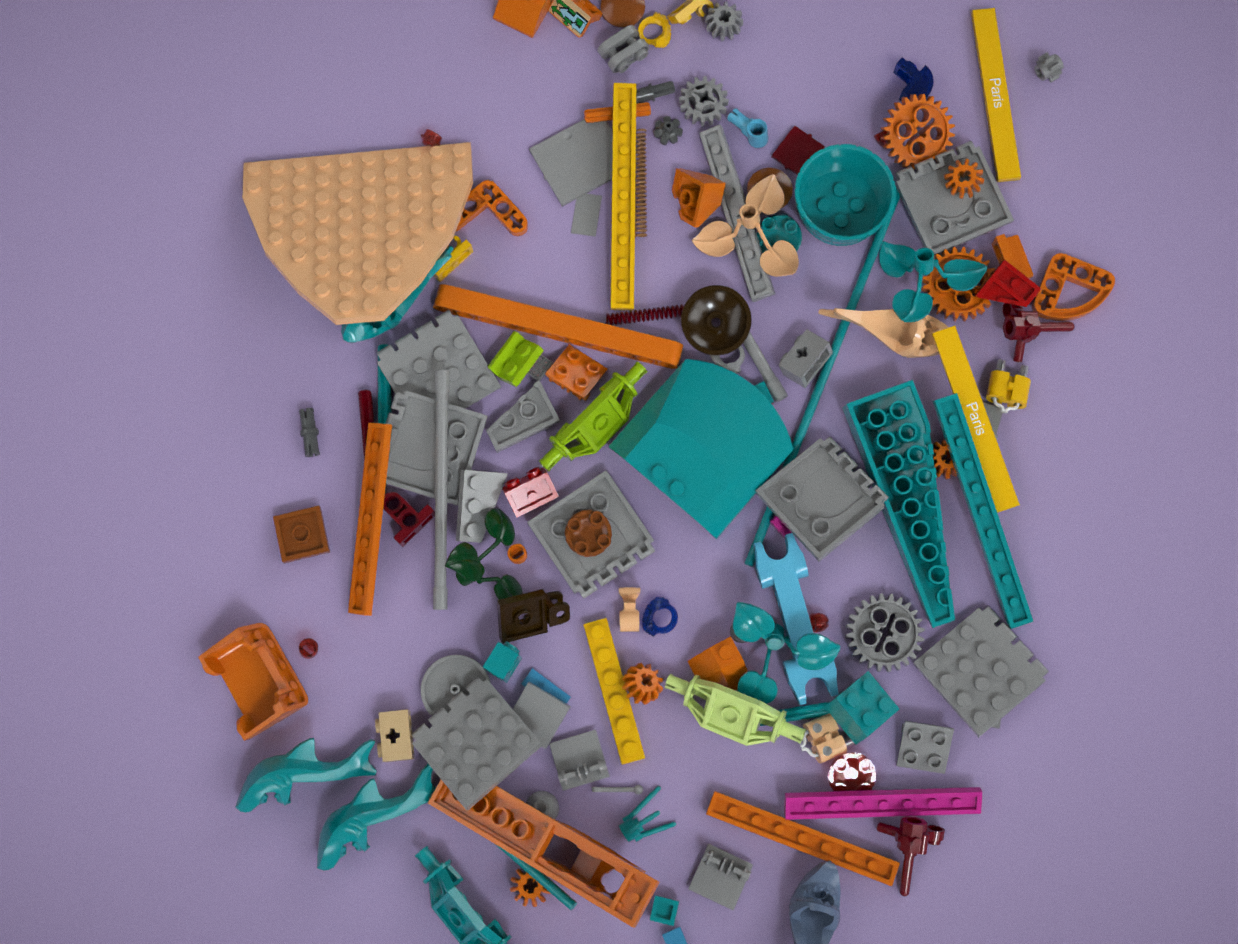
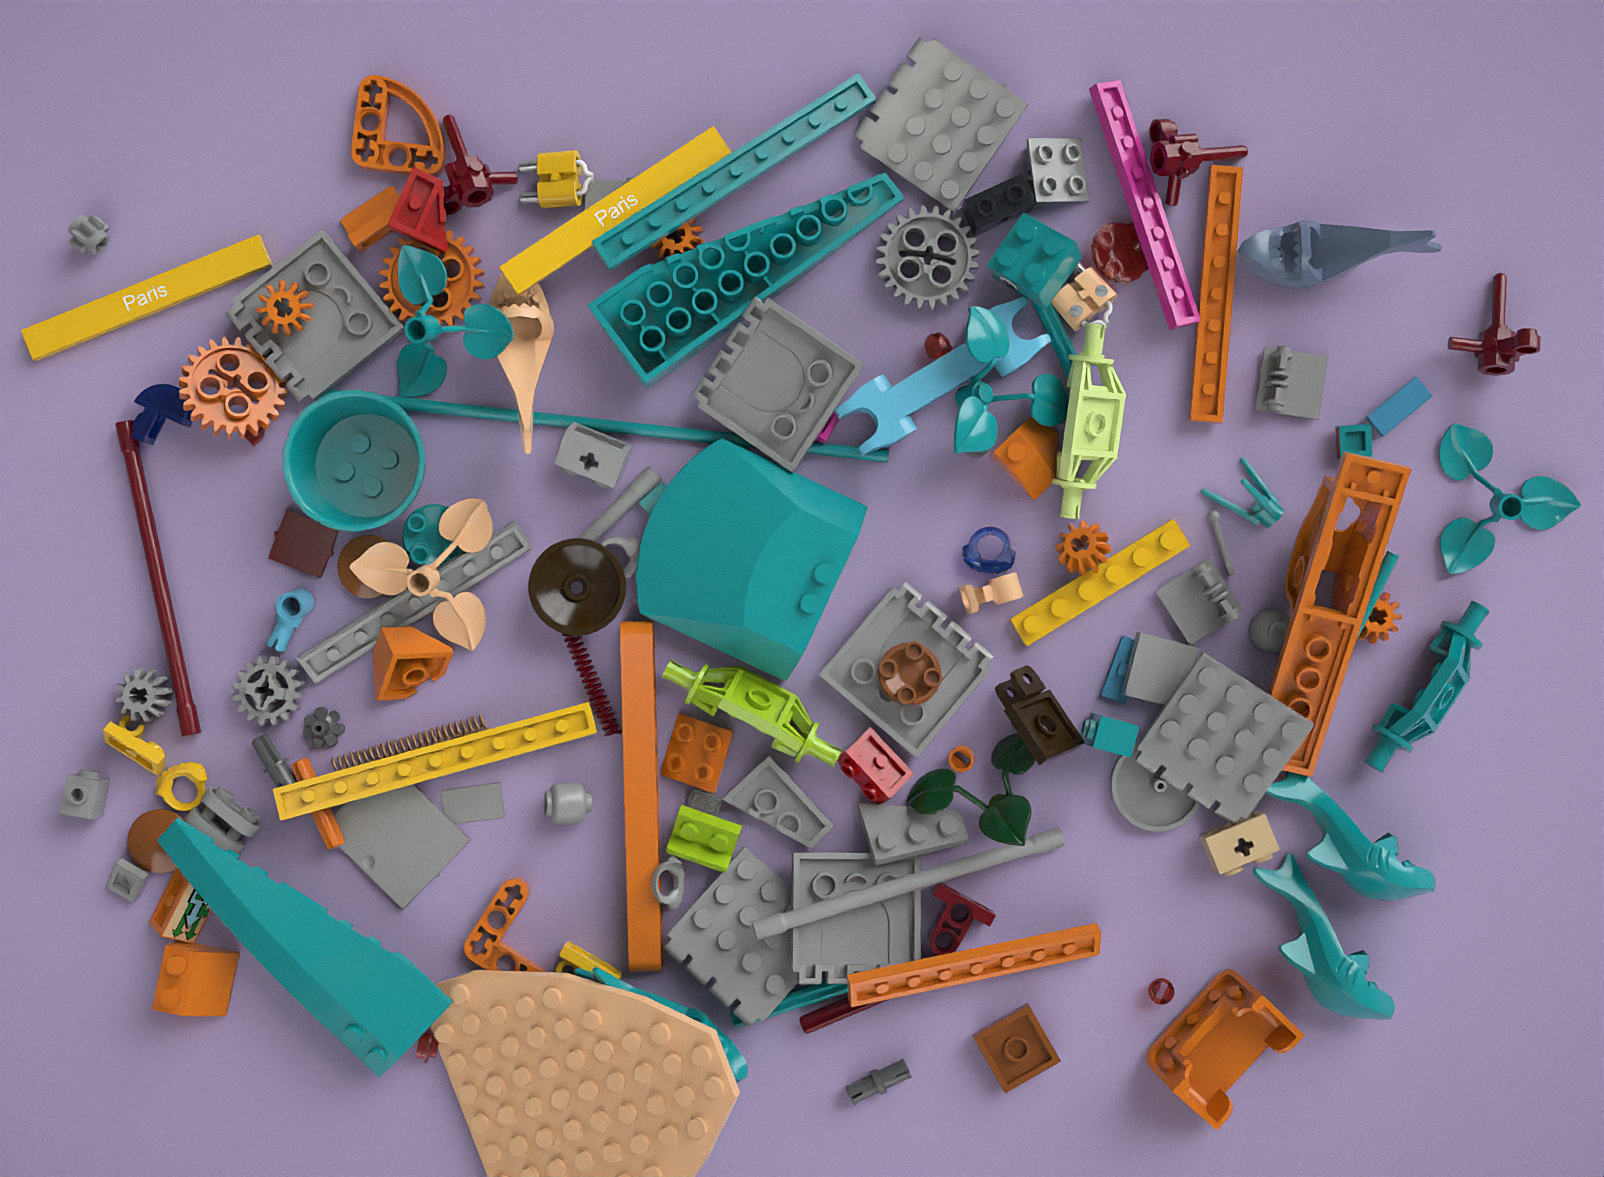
camera: 105 degrees left, 10 degrees up
(481, 329) = (674, 897): none -> light grey piece
(493, 96) = (345, 980): none -> teal wedge
(567, 275) = (567, 803): none -> light grey head
(707, 46) = (186, 708): none -> dark red piece
(910, 694) = (998, 204): none -> black brick

